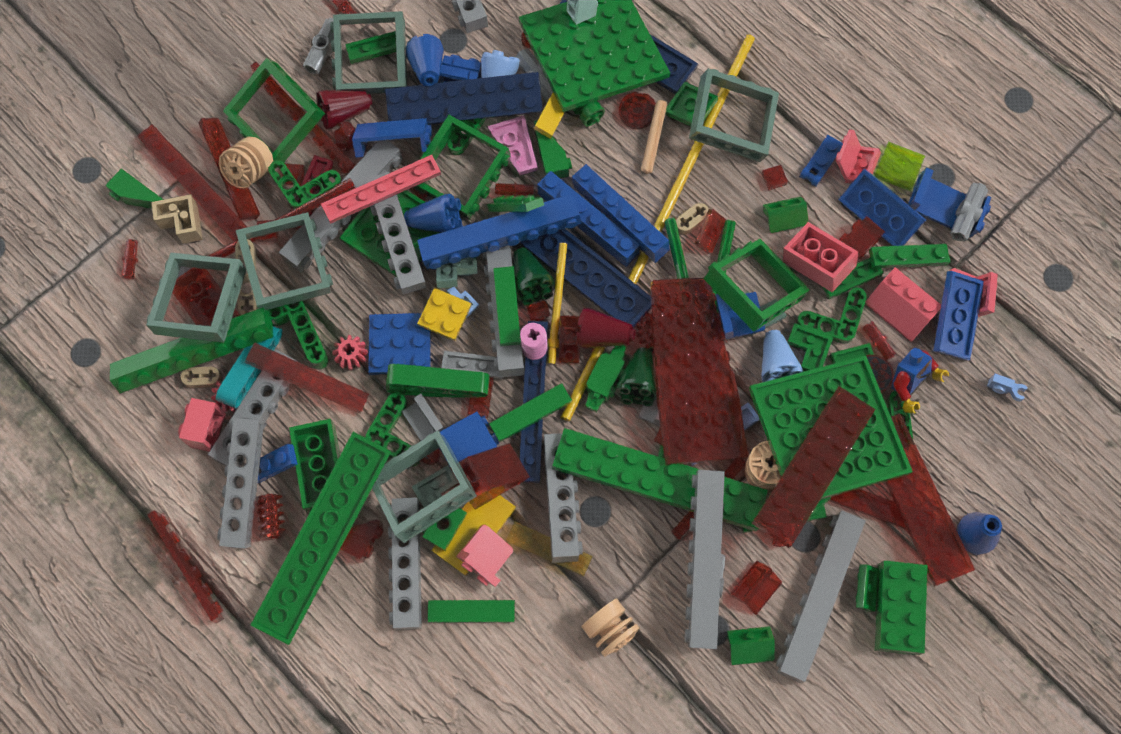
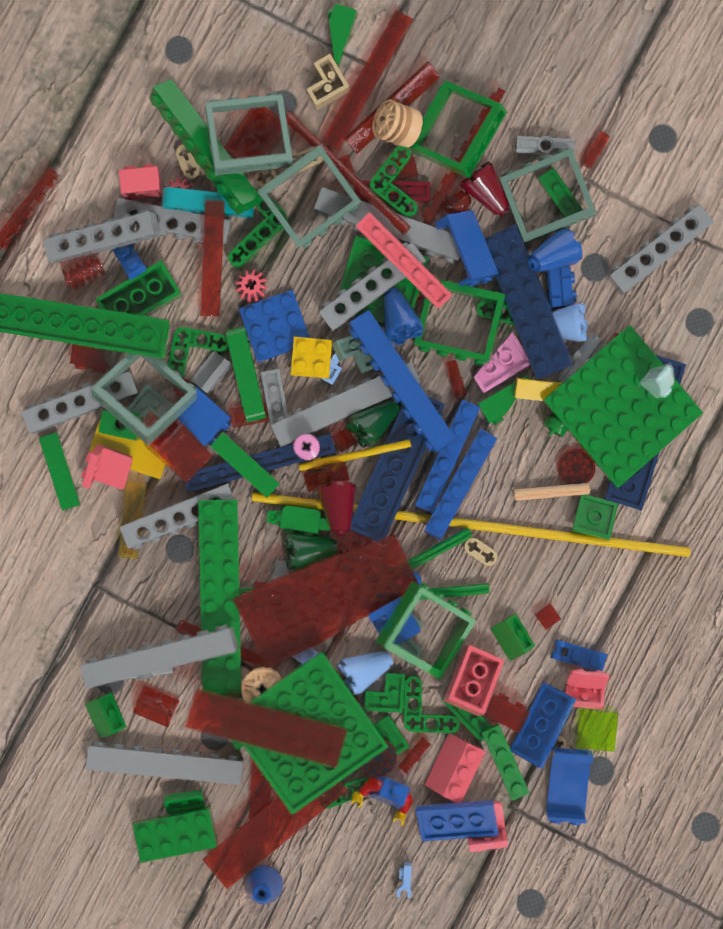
camera: 70 degrees right, 15 degrees up
(130, 259) = (276, 53): clear red axle -> none
(507, 306) = (333, 412): green tile -> none
(515, 204) = (431, 387): green plate -> none
(610, 627) = (78, 594): light nougat wheel -> none
(710, 231) = (471, 572): clear red plate -> none
(725, 141) = (562, 531): sand green window -> none
(969, 212) = (565, 806): light grey piece -> none

